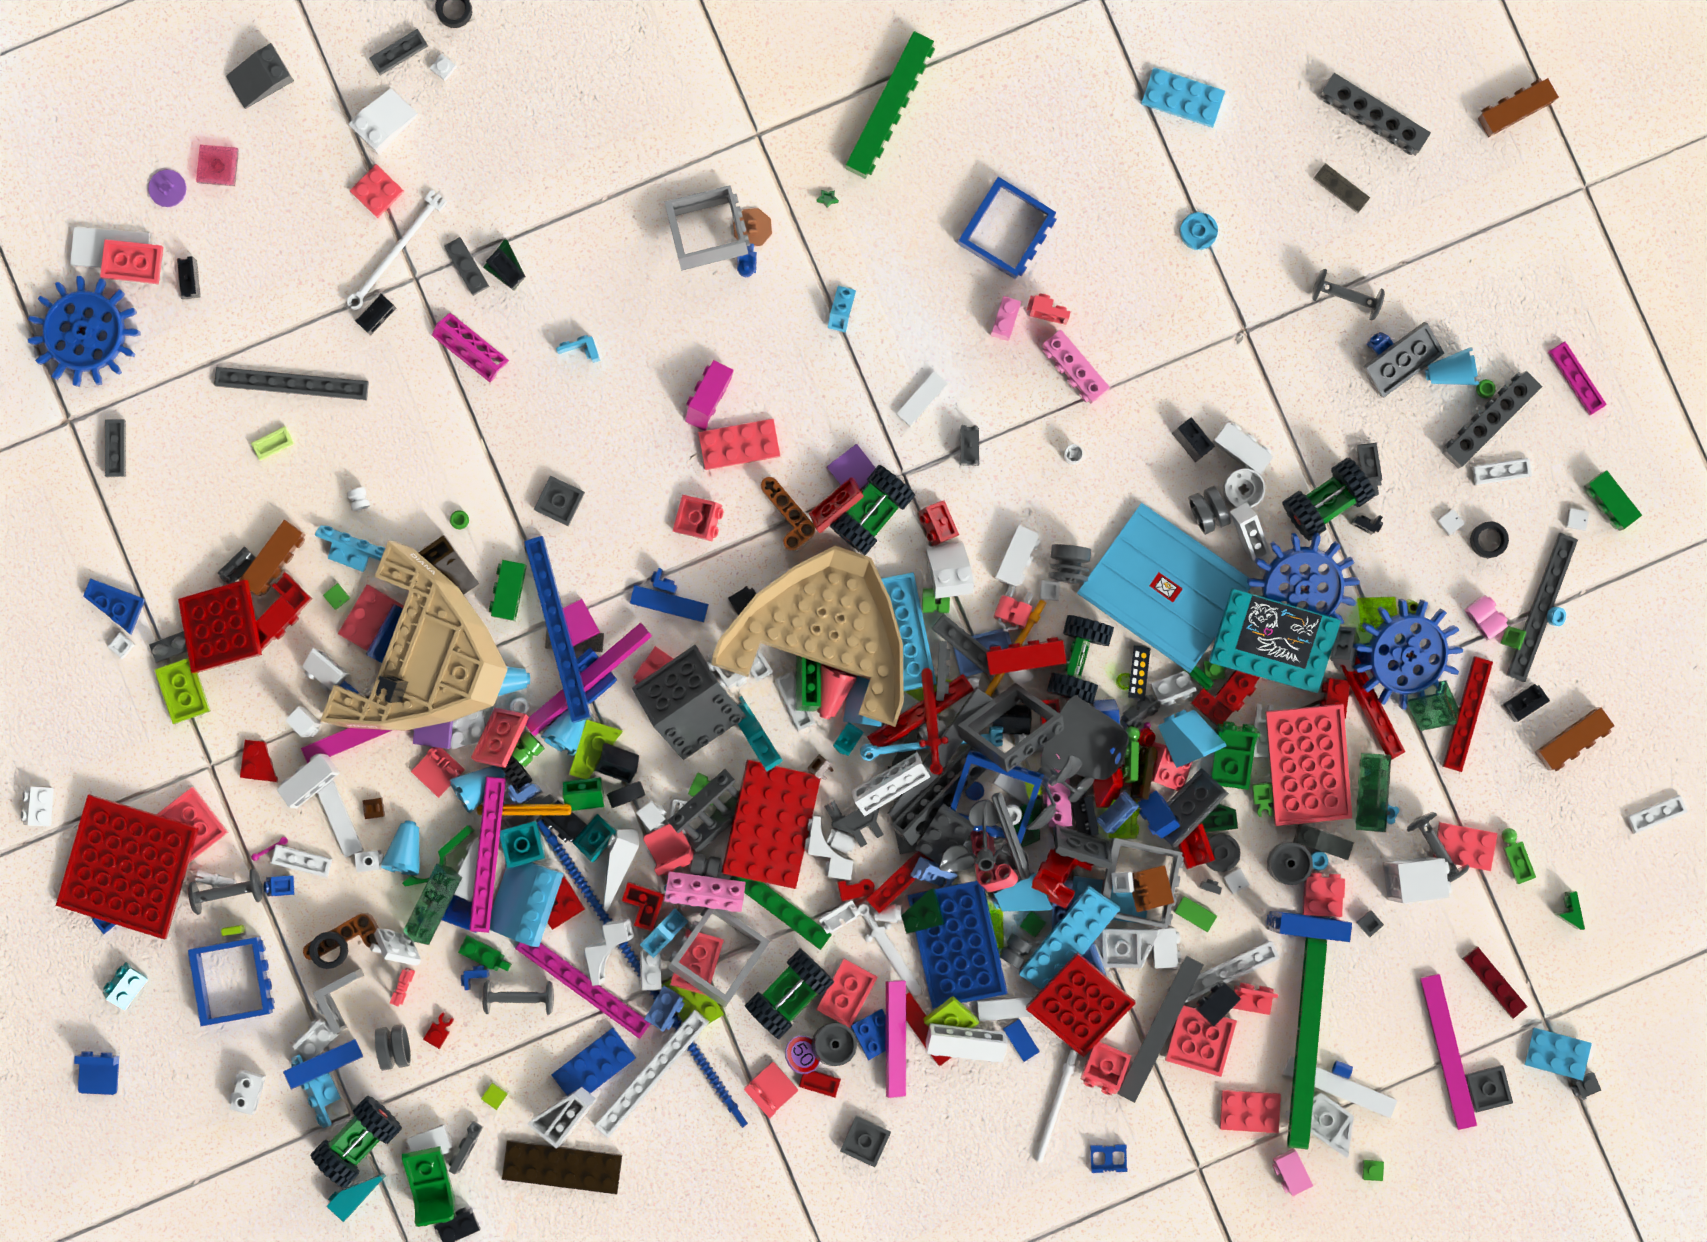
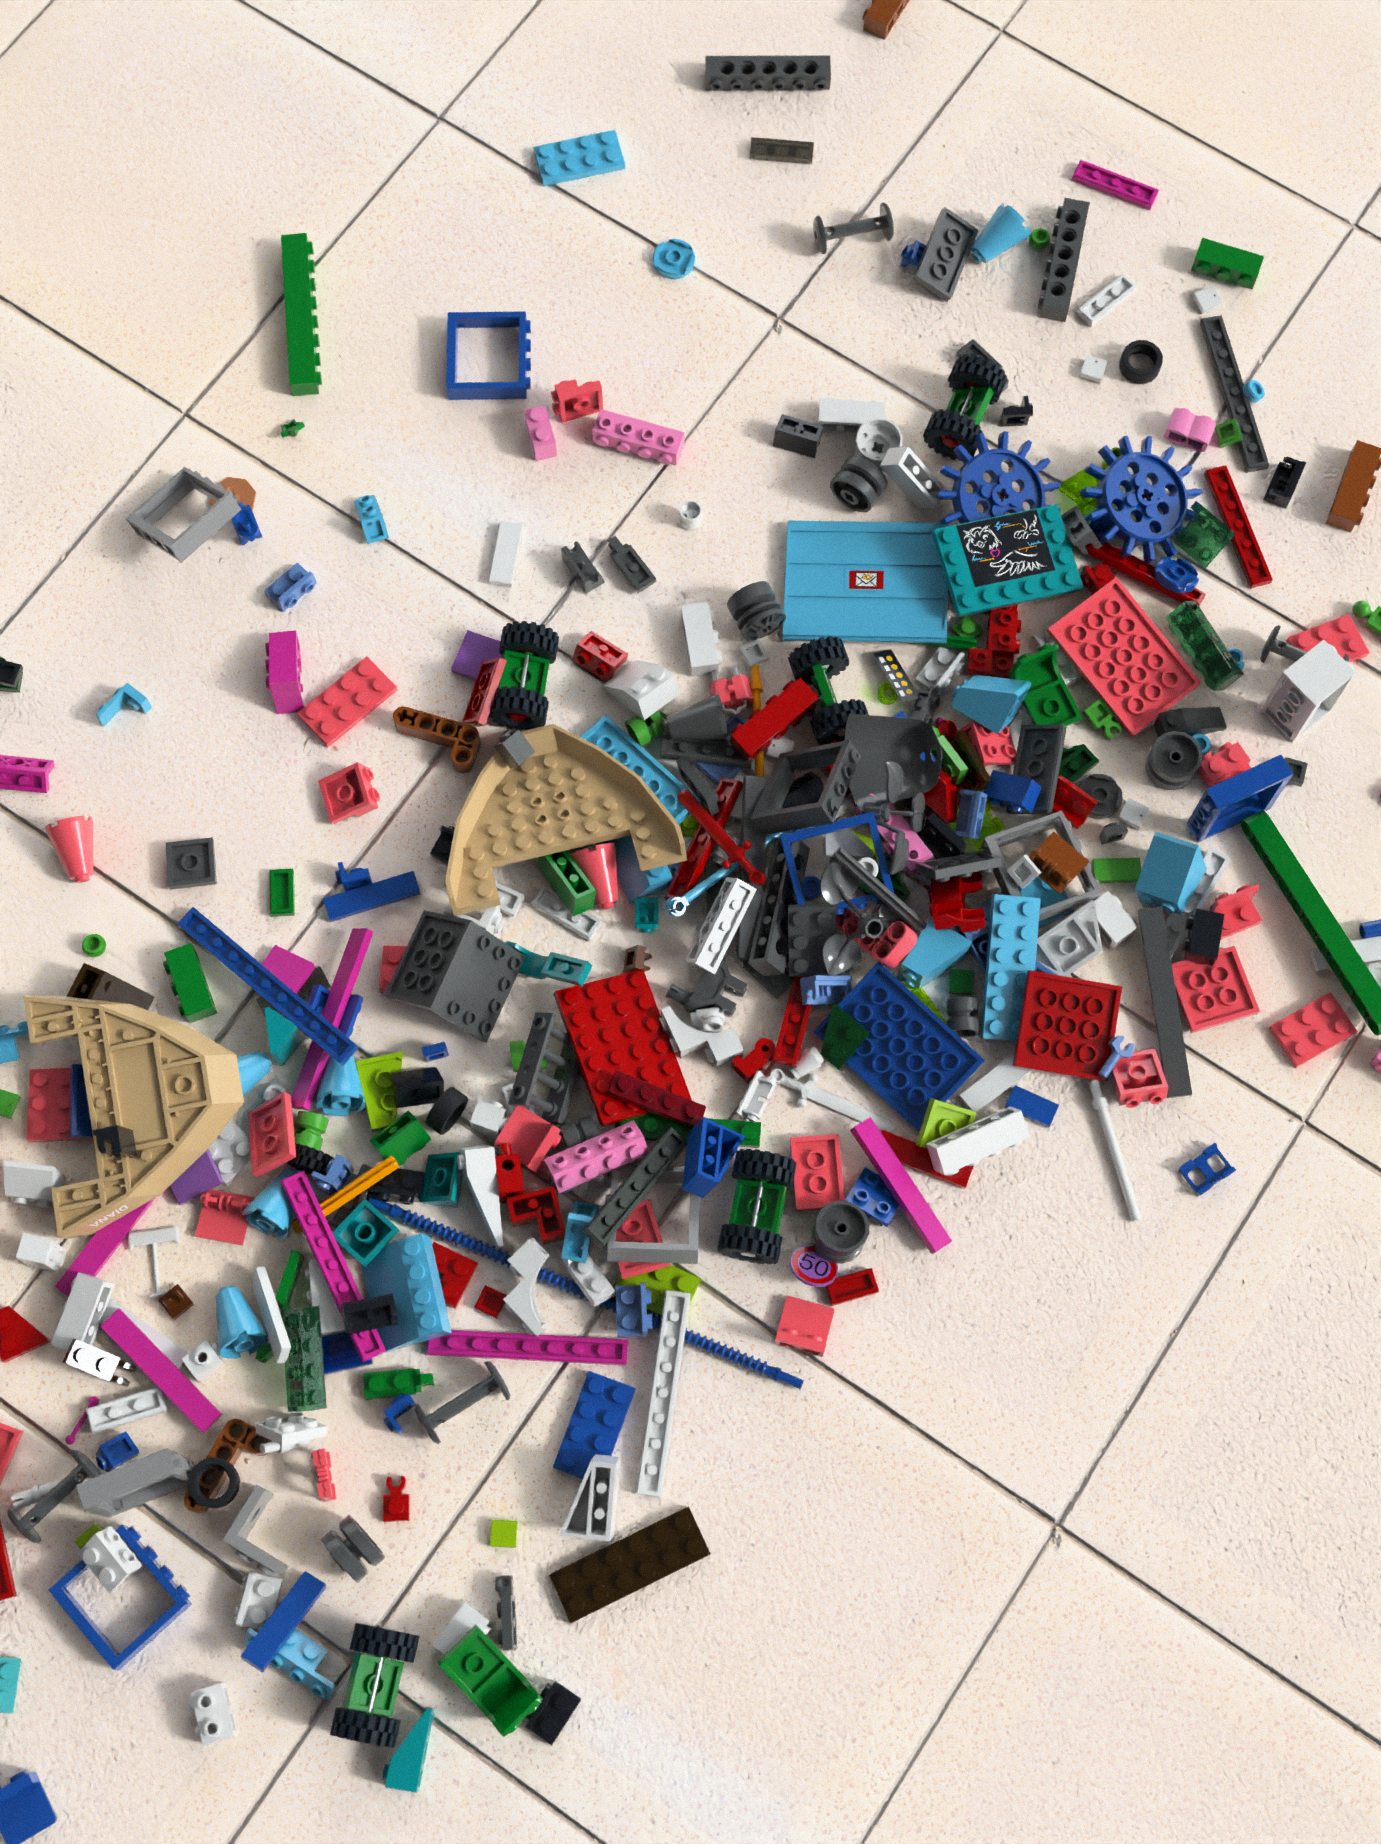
camera: 30 degrees left, 15 degrees down
(236, 956) = (109, 1558): none -> white bracket
(279, 922) = (135, 1483): none -> light grey window
(299, 820) = (96, 1362): none -> hinge
(338, 850) = (161, 1370): none -> dark pink tile
(383, 754) = (152, 1237): none -> white piece
(428, 861) = (271, 1315): none -> white tile
(485, 439) = (74, 846): none -> coral cone
(491, 903) = (369, 1314): none -> black hinge
(546, 671) = (282, 1035): none -> teal slope
(577, 940) = (490, 1302): none -> red tile
(609, 561) = (282, 892): none -> green tile
(637, 873) = (509, 1182): none -> red torso
(644, 746) = (435, 1051): none -> blue tile
(716, 931) = (635, 1187): none -> pearl dark grey tile
(752, 328) = (291, 587): none -> medium blue bracket
(769, 878) = (655, 1100): none -> dark red plate
(777, 941) = (708, 1155): none -> blue wedge
(830, 562) = (513, 748): none -> brick
(842, 848) = (713, 1021): none -> white plate
(865, 1141) = (942, 1316): dark grey plate -> none
(972, 623) = (698, 722): none -> dark grey cone
(1005, 466) = (631, 565): none -> dark grey hinge
(1100, 1045) = (1116, 1054): none -> medium blue bar
(1225, 945) = (1170, 873): none -> medium azure slope
(1393, 725) = (1176, 575): none -> blue tile

